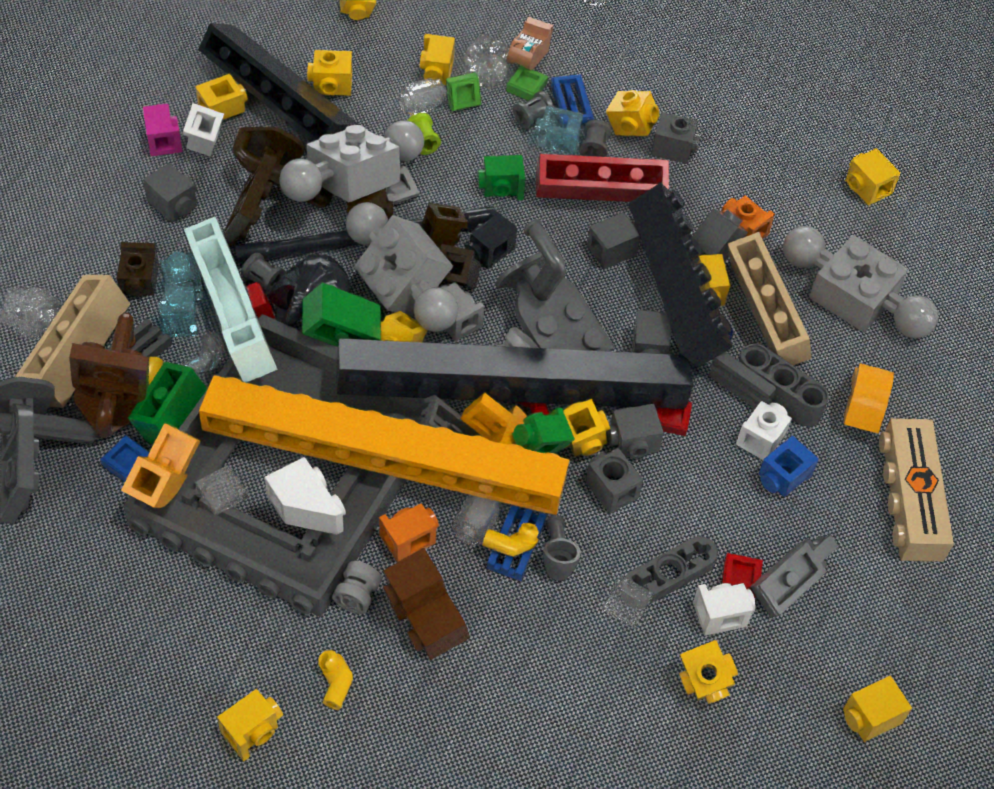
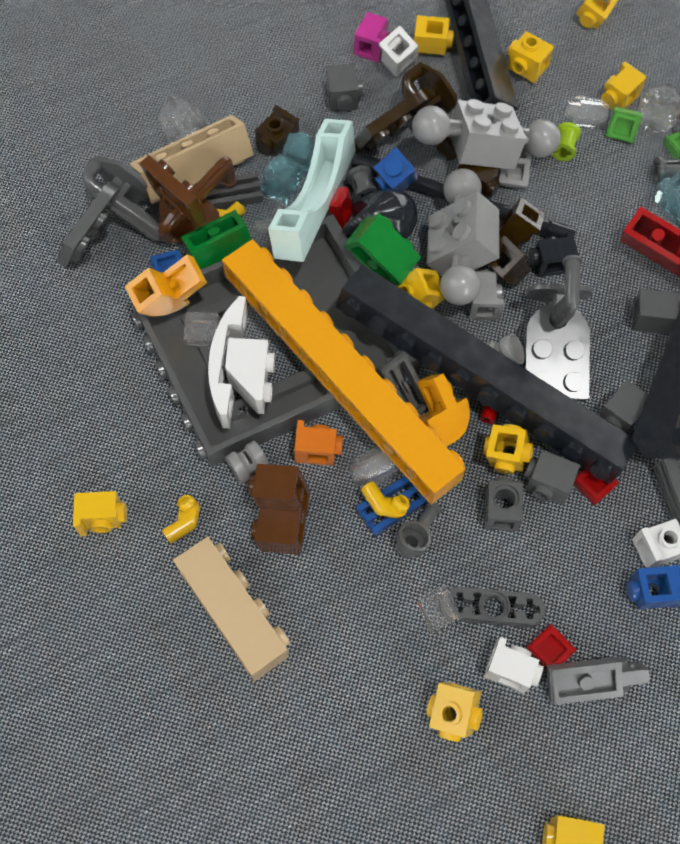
camera: 40 degrees right, 10 degrees up
(292, 242) = (395, 171): none -> blue brick
(292, 535) = (231, 326): none -> white slope
(446, 721) = (232, 608): none -> tan brick
(502, 176) = (602, 209): green brick -> none
(544, 433) = (467, 434): green brick -> none

